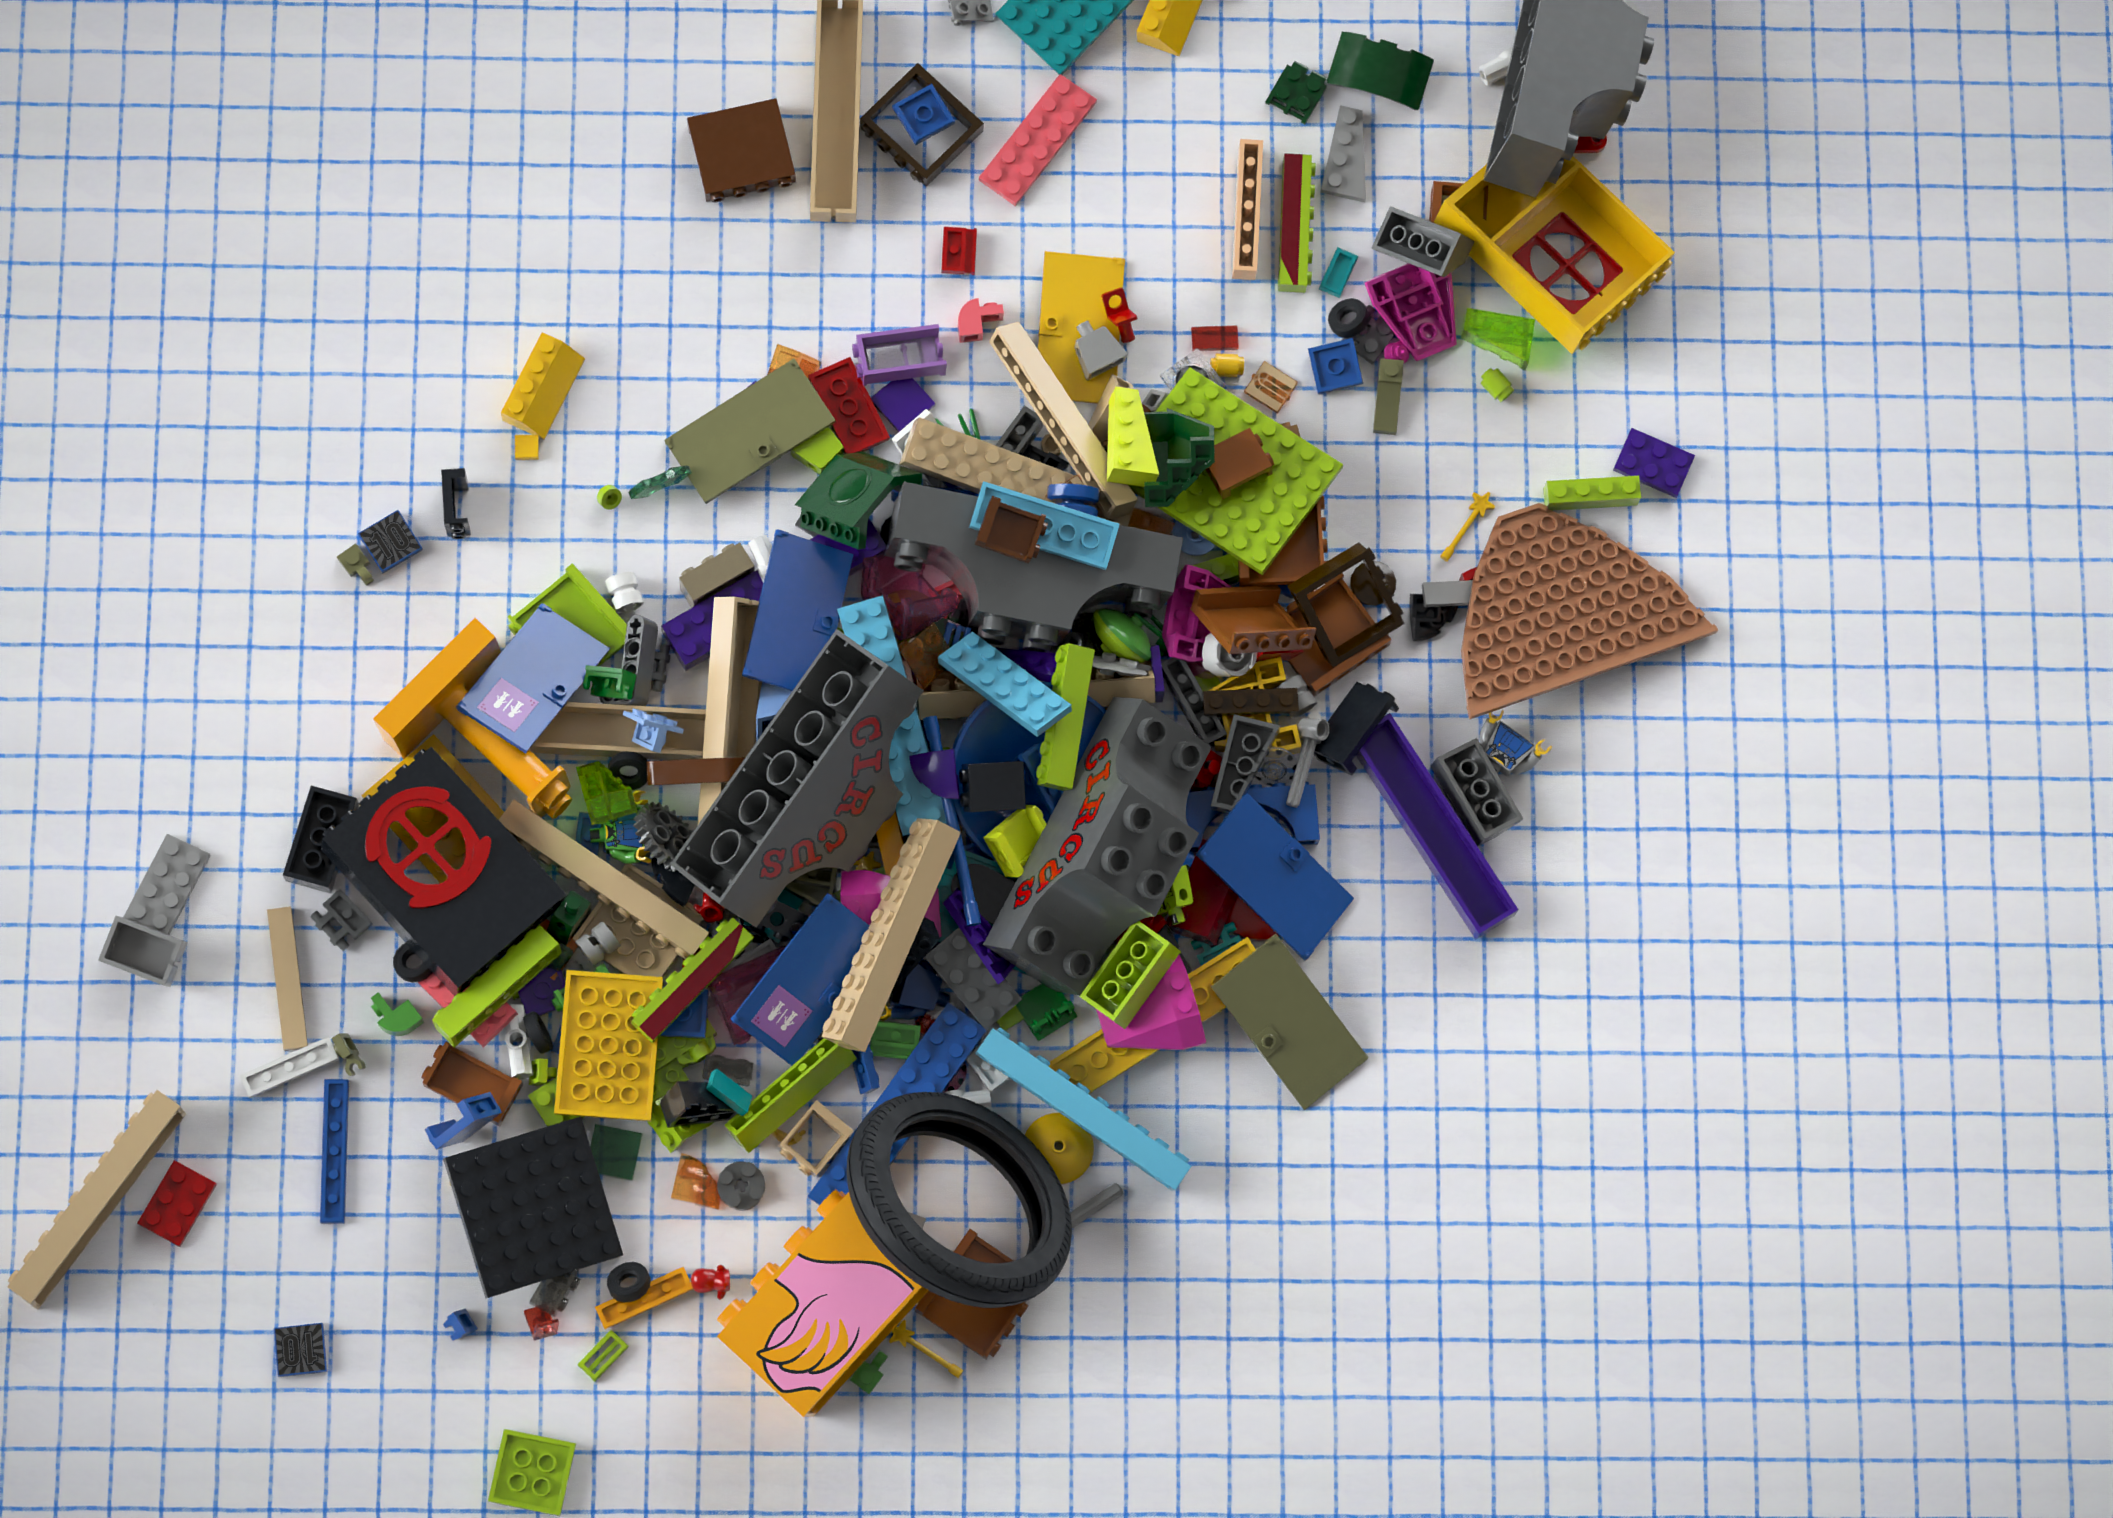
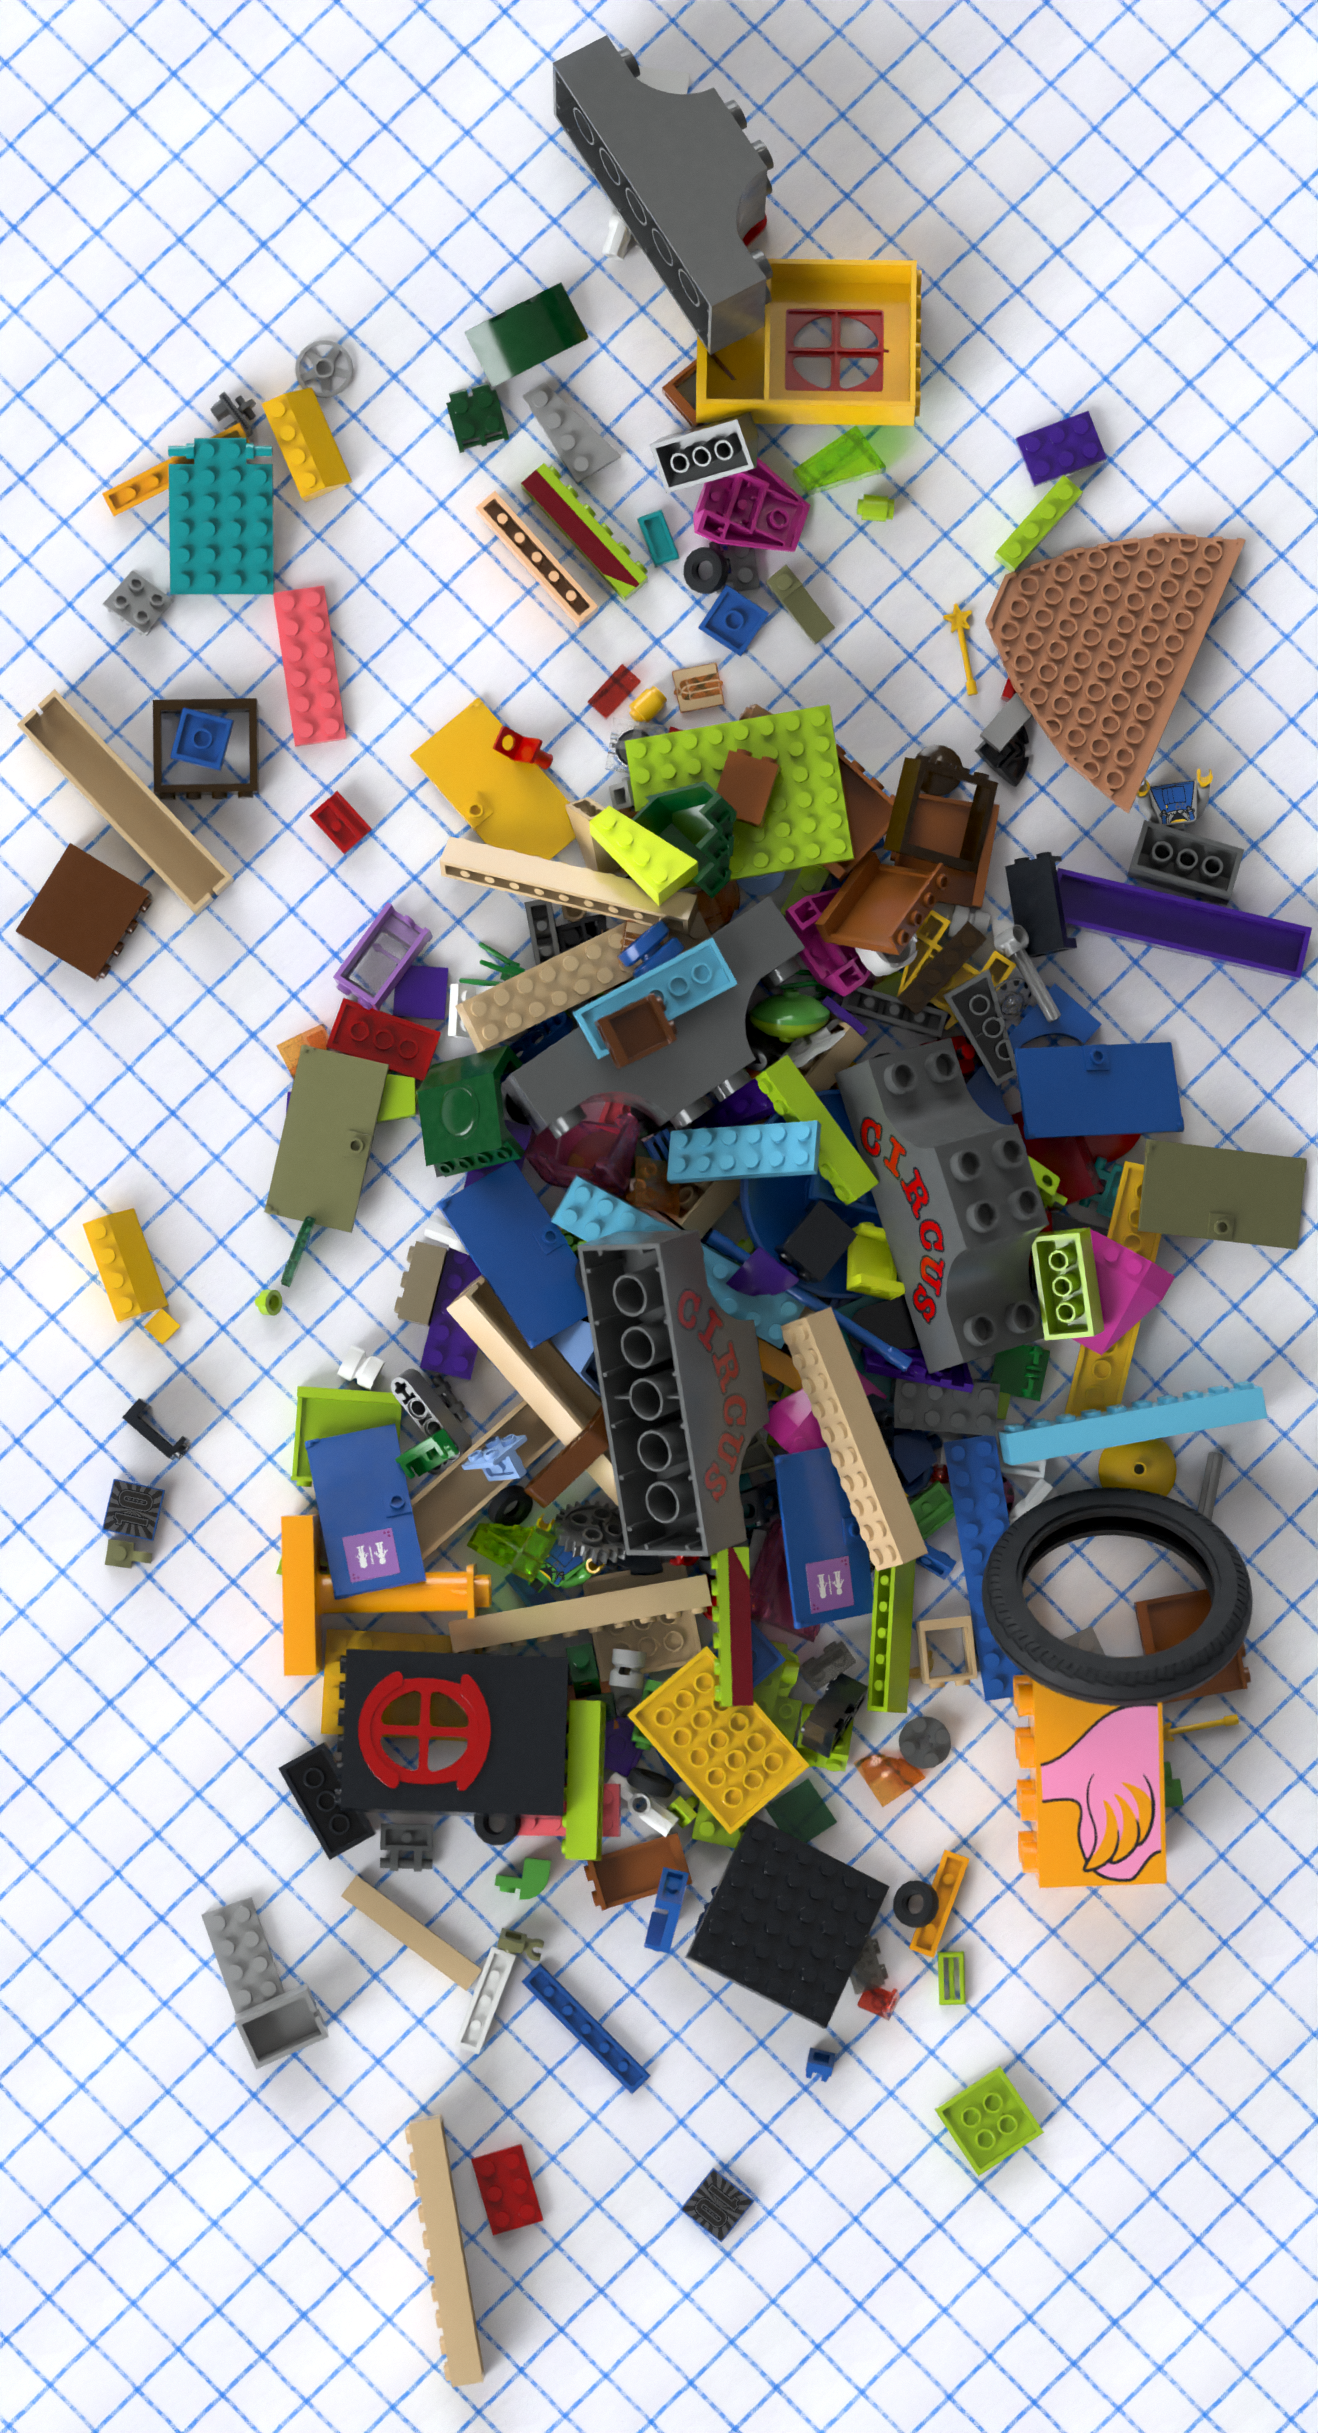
camera: 35 degrees left, 10 degrees up
(709, 1280) = (974, 1840): red animal -> none
(729, 1092) = (848, 1683): teal tile -> none
(972, 316) = (405, 867): coral brick -> none
(1097, 350) = (534, 797): light grey torso -> none
(1396, 351) = (771, 561): dark pink wheel -> none

